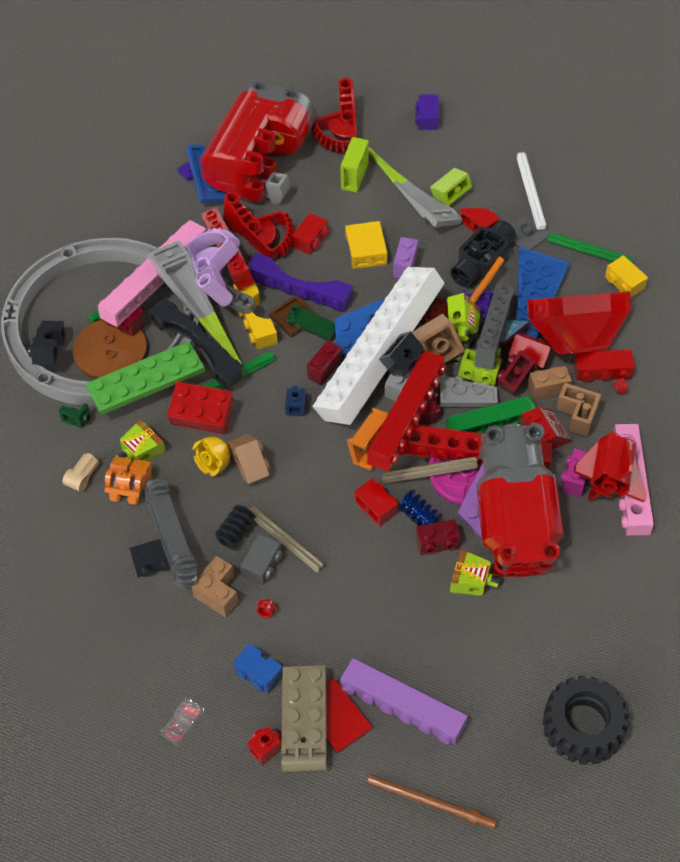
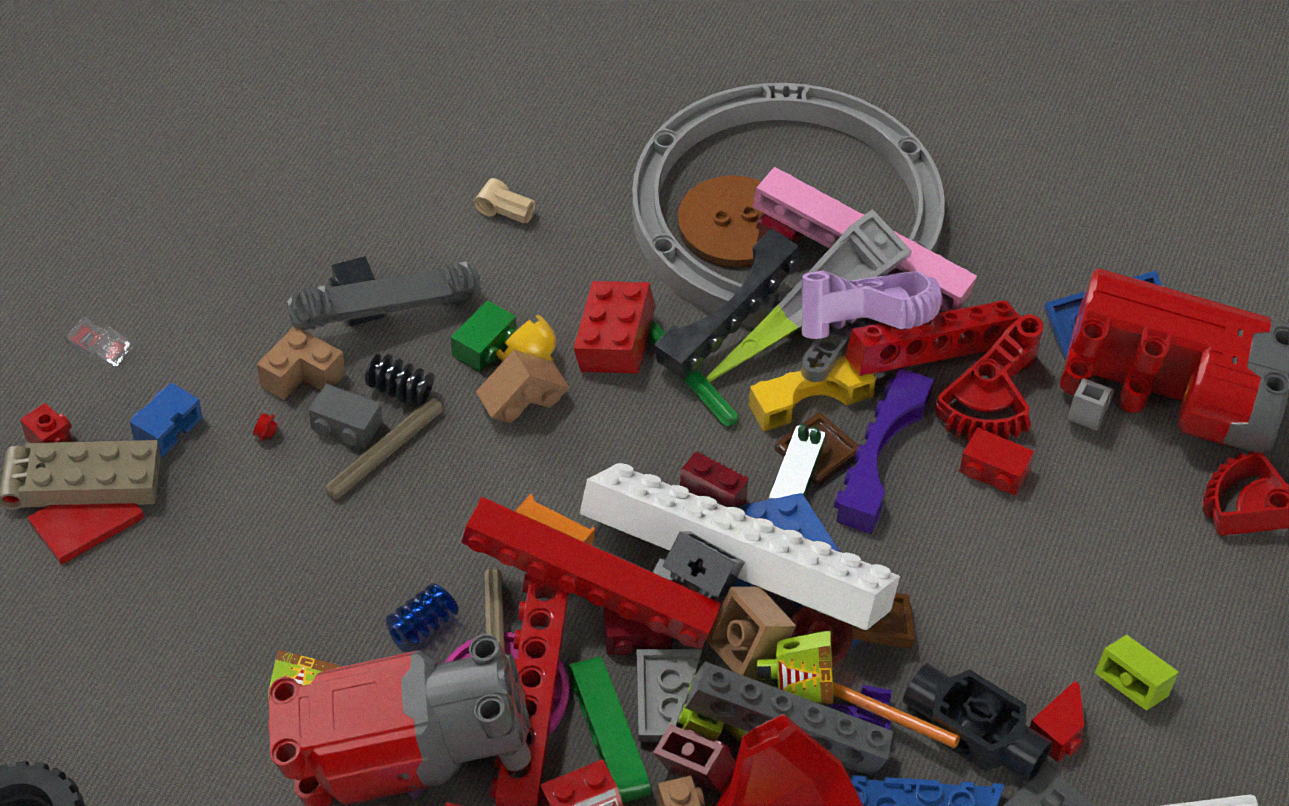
camera: 85 degrees right, 5 degrees down
(45, 343) = (747, 140): black arch -> none
(74, 417) = (603, 187): dark green bracket -> none
(127, 479) = (490, 247): orange hips -> none
(141, 443) = (553, 264): lime torso -> none
(144, 377) = (663, 252): bright green plate -> none
(199, 482) = (483, 336): none -> green brick
(295, 401) = (639, 450): dark blue brick -> none
(354, 164) = (1163, 500): lime window -> none
(366, 244) = (981, 540): yellow panel -> none
(376, 502) = (440, 559): red brick -> none
(403, 701) = (90, 596): medium lavender brick -> none
(405, 256) = (953, 600): medium lavender brick -> none
(427, 206) = (1074, 643): light grey plate -> none
(437, 537) = (367, 632): dark red brick -> none

